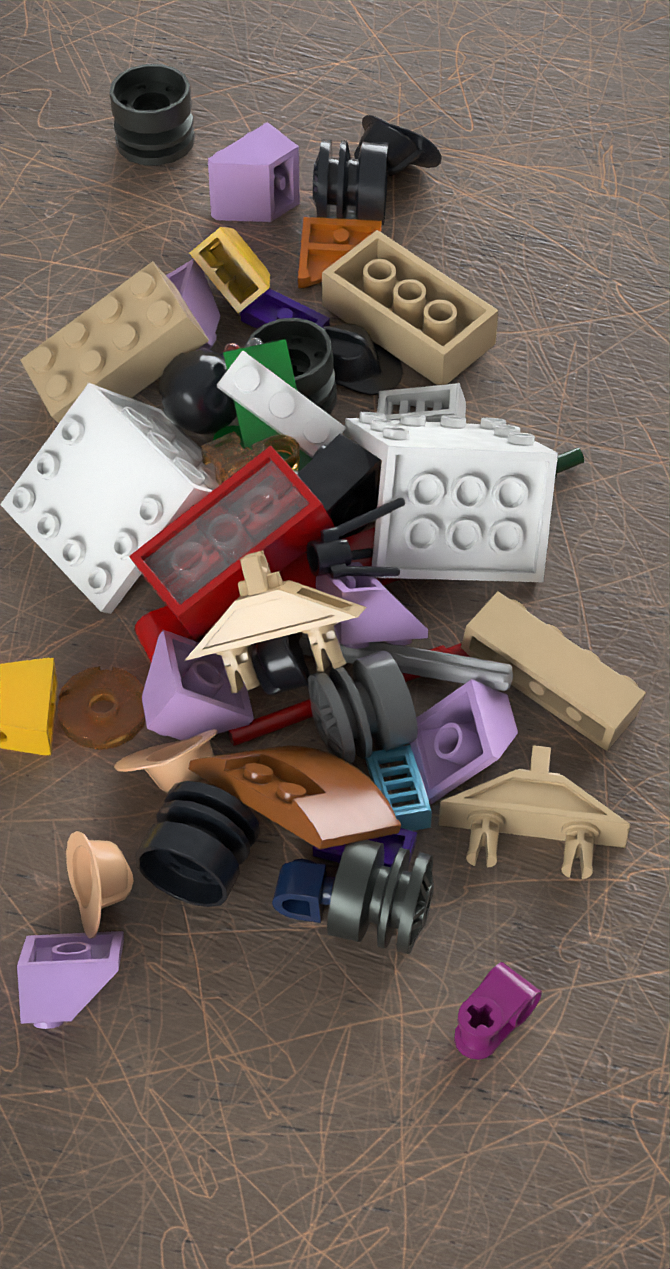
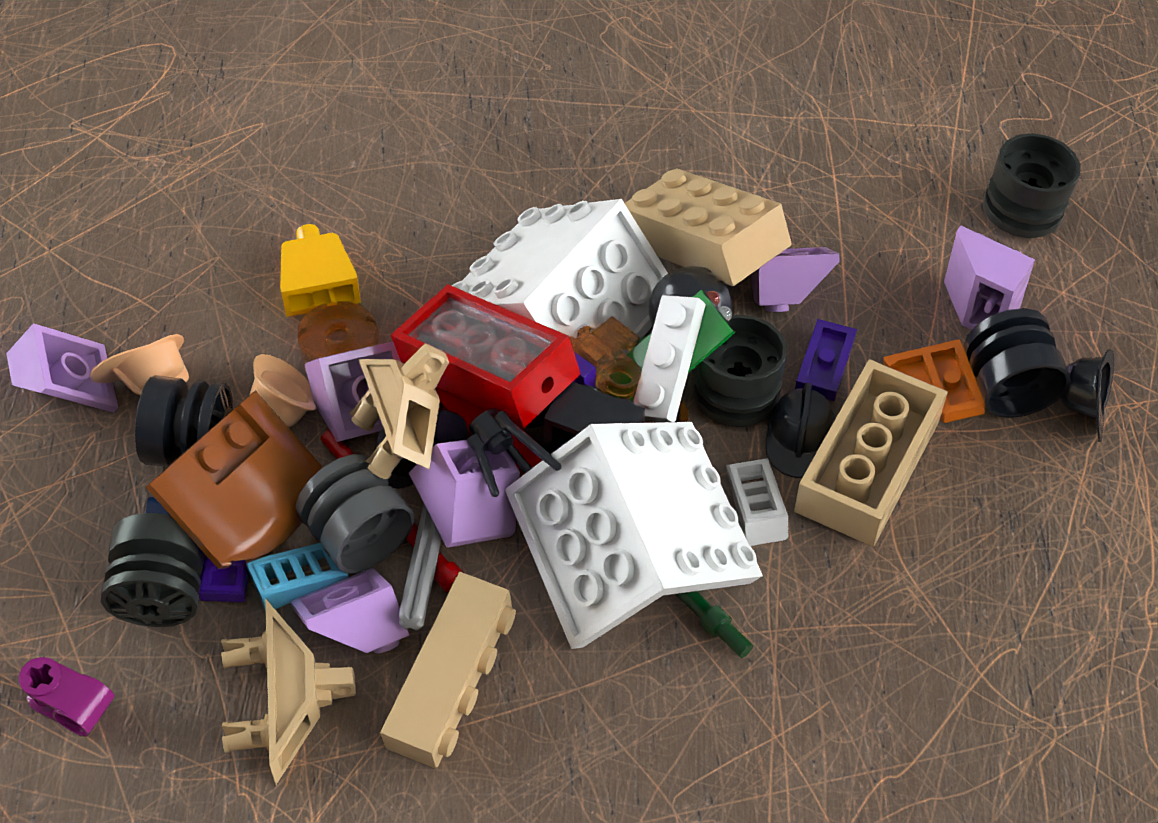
camera: 75 degrees right, 0 degrees up
(232, 267) = (854, 291): yellow torso -> none

